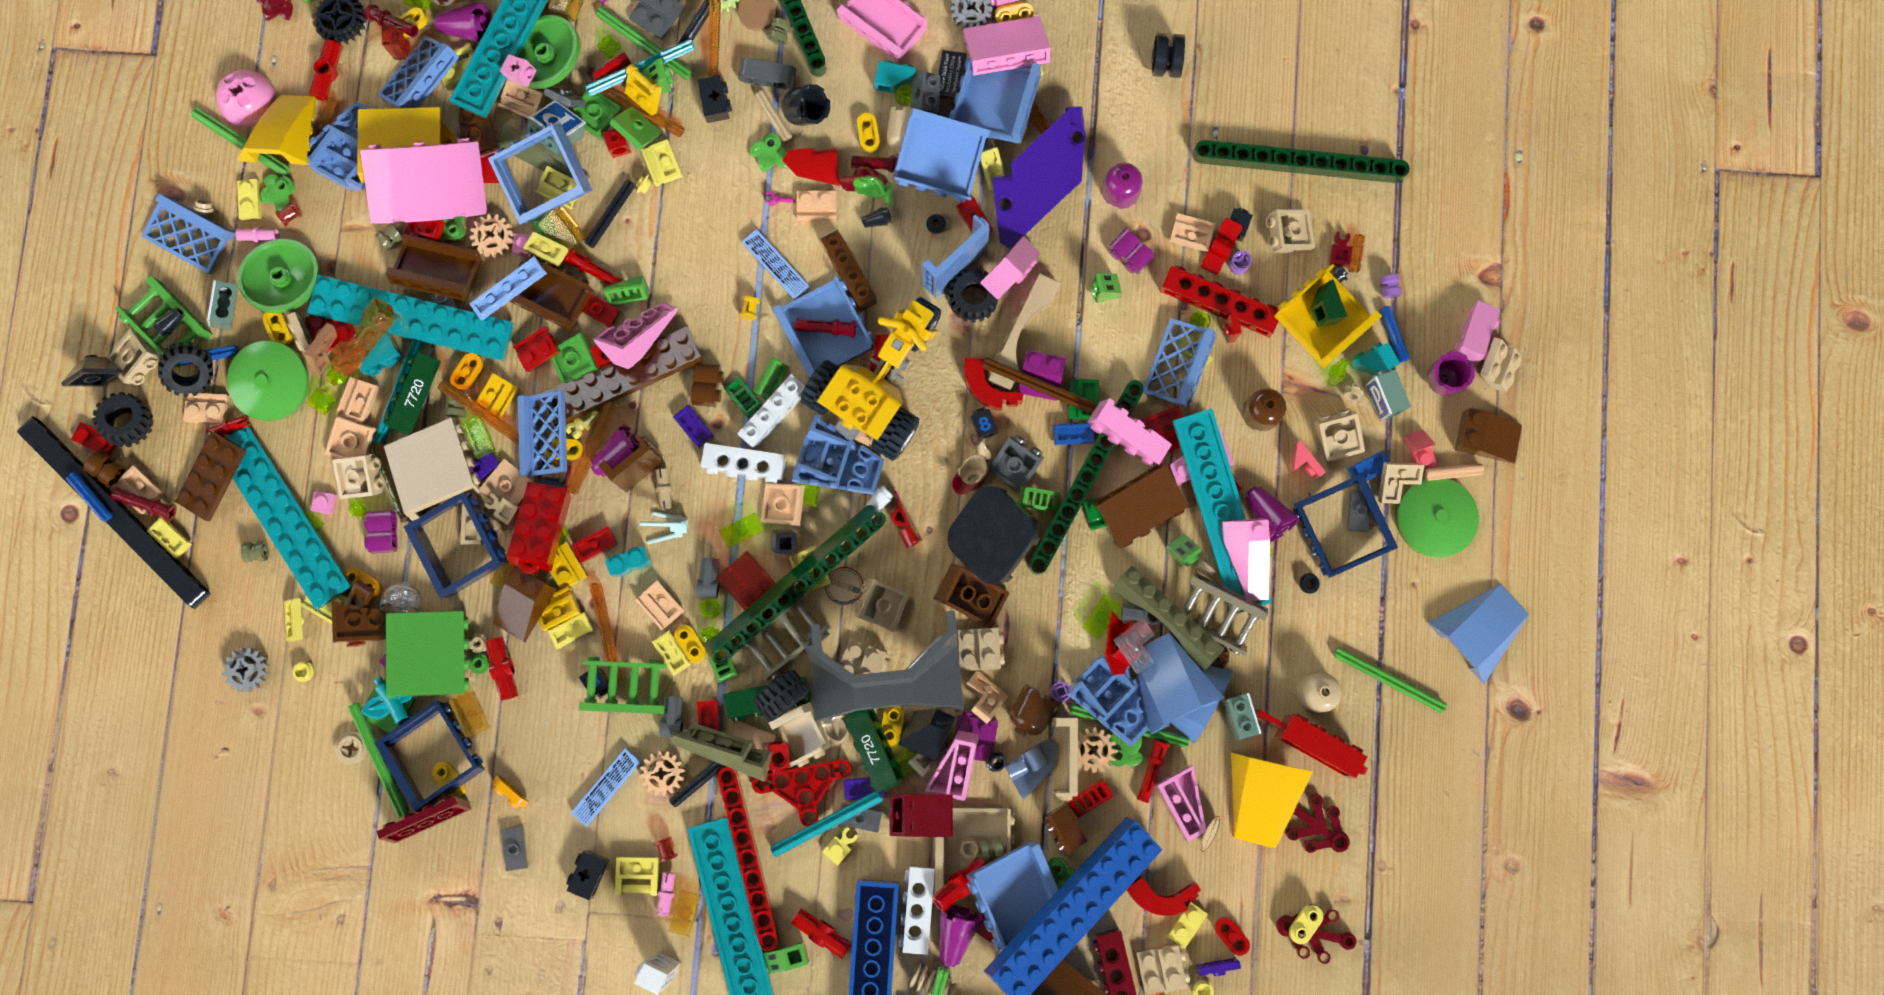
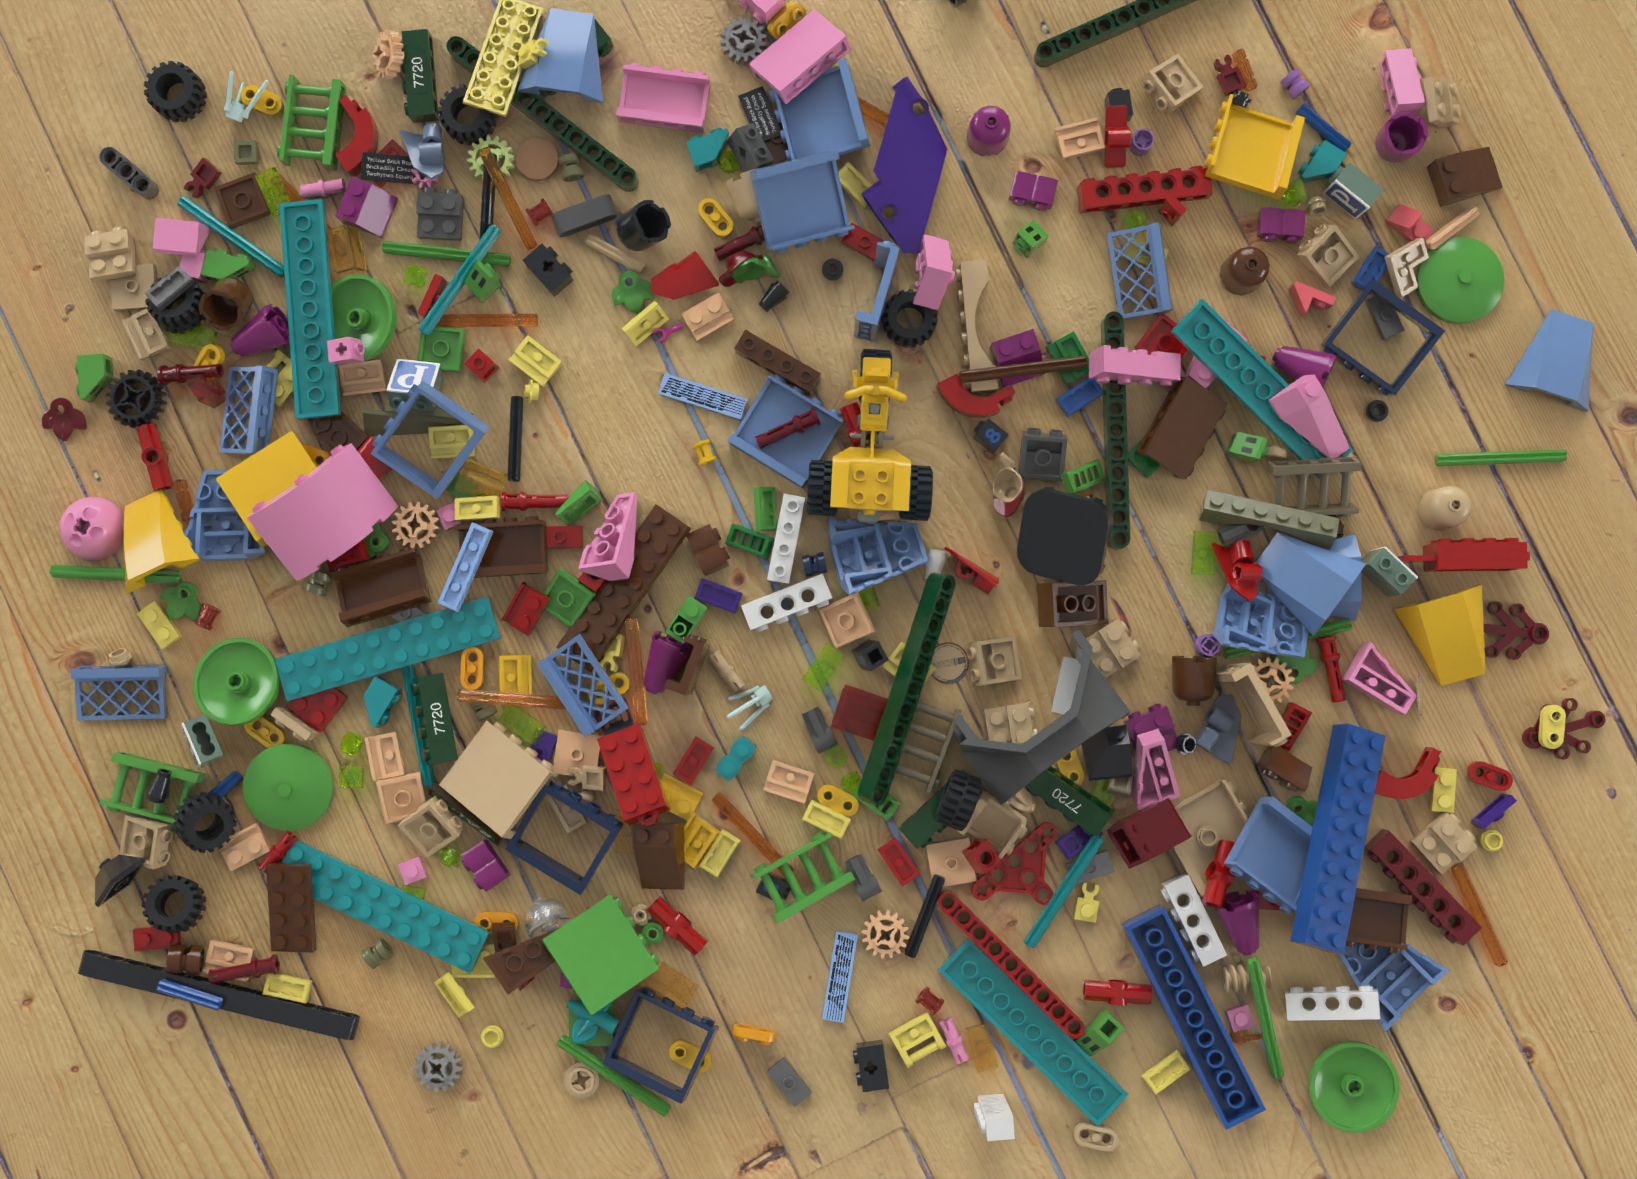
camera: 30 degrees left, 5 degrees up
(257, 234) = (189, 654): bright pink pin -> none
(316, 352) = (321, 735): nougat plate -> none
(375, 323) = (361, 672): clear orange arch -> none
(427, 818) = (695, 1099): dark red plate -> none
(565, 97) = (404, 350): flat silver plate -> none
(635, 127) = (491, 341): bright green plate -> none
(642, 90) = (476, 301): yellow plate -> none
(658, 428) = (686, 619): none -> bright green slope
(725, 750) = (932, 879): olive wedge -> none
(733, 51) = (539, 212): none -> clear red bush
(763, 182) = (645, 323): none -> light yellow plate
(783, 445) = (818, 560): none -> dark blue wheel
(989, 694) = (1145, 686): light nougat plate -> none
(991, 848) = (1228, 824): olive wheel -> none
(1132, 647) = (1252, 565): clear plate -> none
(1315, 390) = (1281, 224): none -> magenta brick
(1327, 305) = (1249, 136): dark green slope -> none

